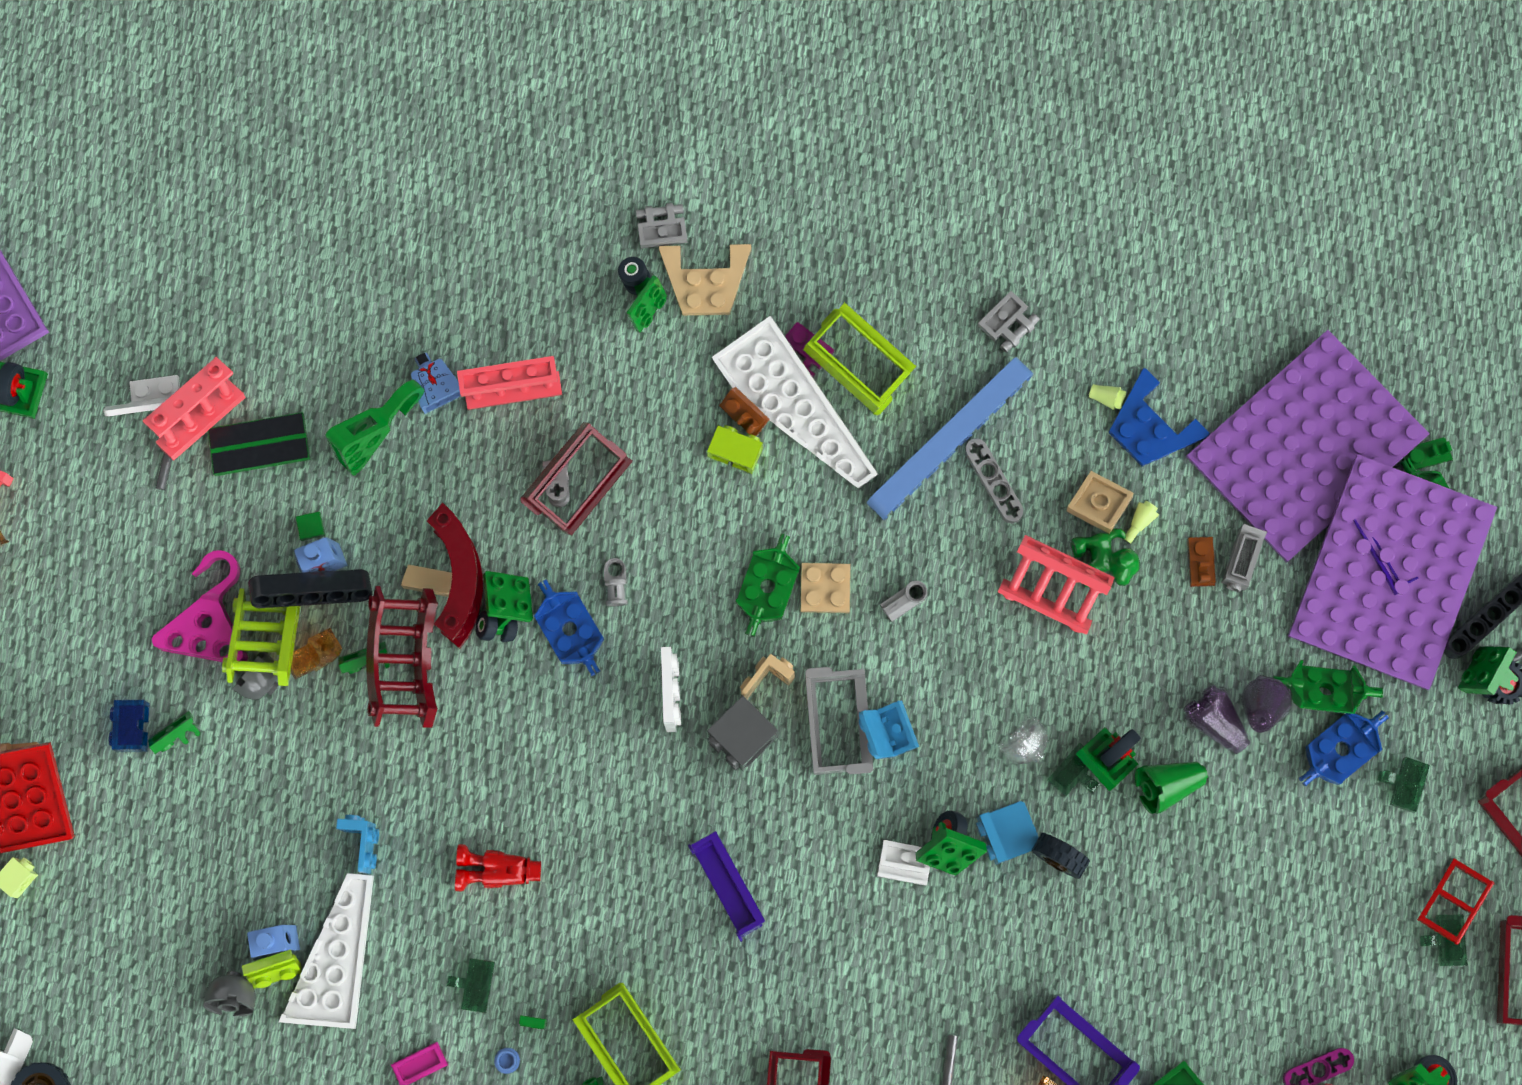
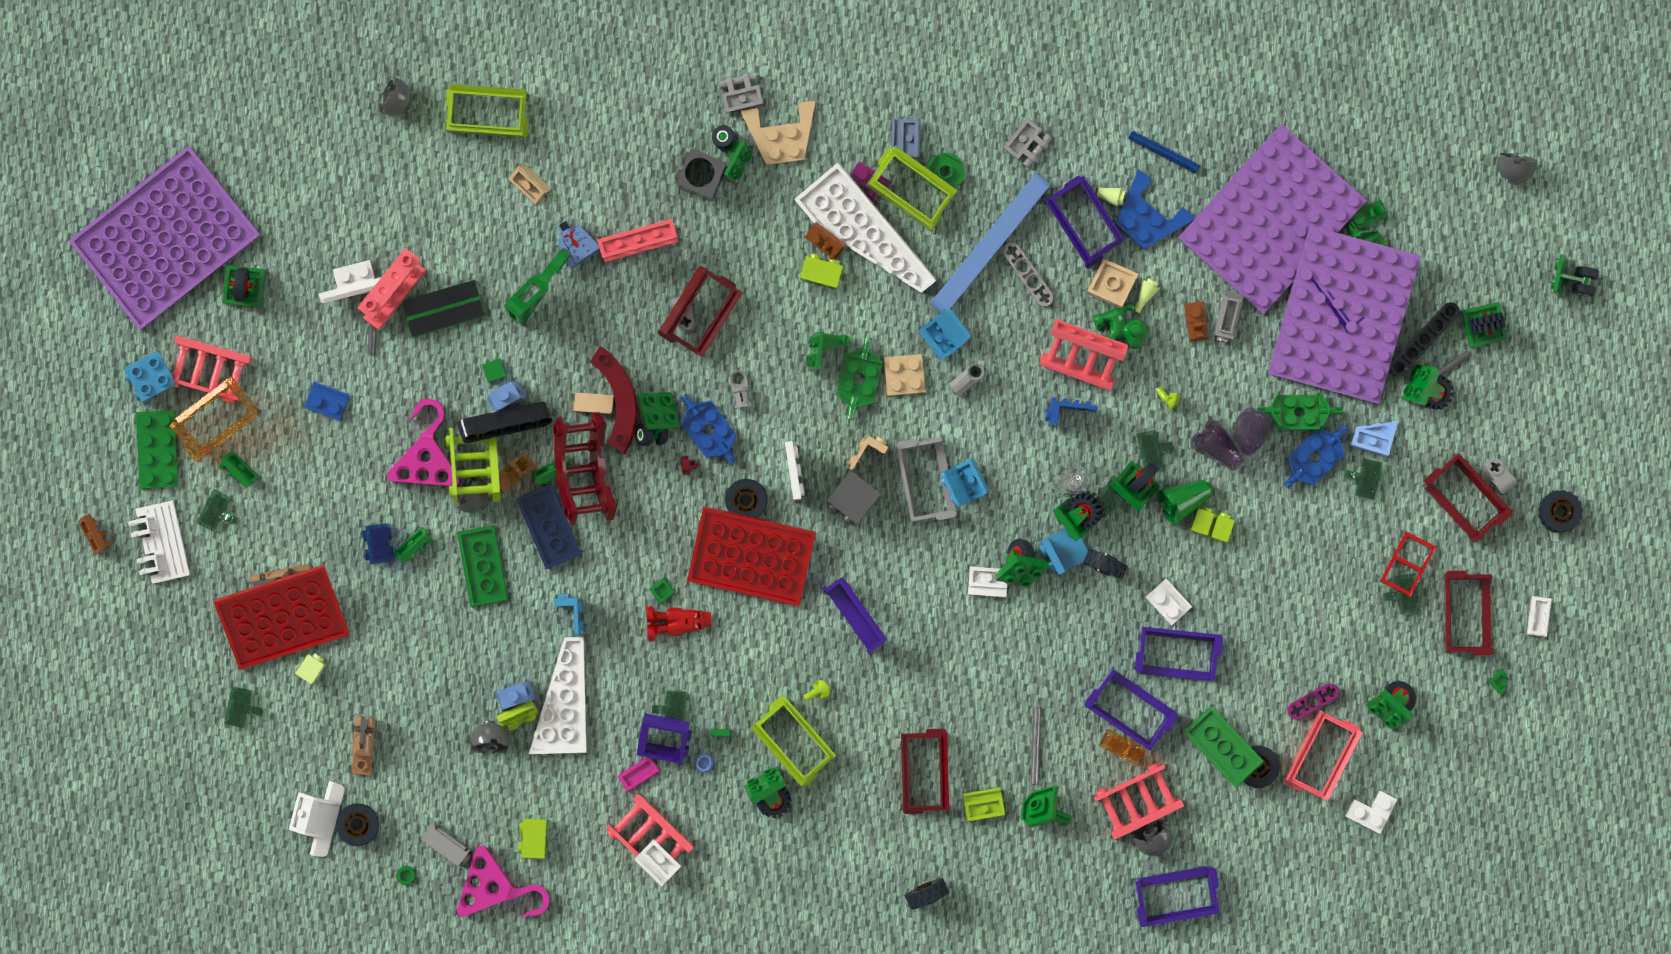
camera: 10 degrees left, 10 degrees up
(65, 986) = (363, 745): none -> medium nougat plate
(95, 541) = (327, 401): none -> blue plate
(239, 186) = (395, 98): none -> dark grey cylinder
(258, 770) = (482, 566): none -> green tile
(348, 728) = (548, 526): none -> dark blue plate
(383, 242) = (523, 124): none -> lime piece
(388, 305) = (529, 183): none -> tan slope
(450, 1038) = (659, 751): none -> dark purple window
(483, 827) = (662, 590): none -> green tile
(536, 670) = (687, 465): none -> dark red tile
(592, 713) = (748, 487): none -> black wheel
(602, 794) = (751, 556): none -> red plate
(604, 334) = (717, 168): none -> dark grey brick
(671, 979) = (820, 689): none -> lime plate
(727, 533) = (822, 341): none -> green plate
(860, 295) = (907, 136): none -> sand blue plate
(882, 540) = (945, 334): none -> dark azure bracket
(913, 335) = (953, 163): none -> green plate
(1009, 653) = (1051, 414): none -> blue plate
(1033, 786) = (1079, 514): none -> plate
(1080, 469) = (1088, 261): none -> dark purple piece
(1130, 714) = (1150, 448): none -> clear green plate
(1137, 916) = (1168, 602): none -> white plate
(1163, 656) = (1171, 400): none -> lime plate
(1176, 350) = (1169, 154): none -> blue axle
(1195, 987) = (1216, 650): none -> dark purple piece
(1202, 821) = (1212, 525): none -> lime piece
(1421, 733) = (1375, 438): none -> light blue wing

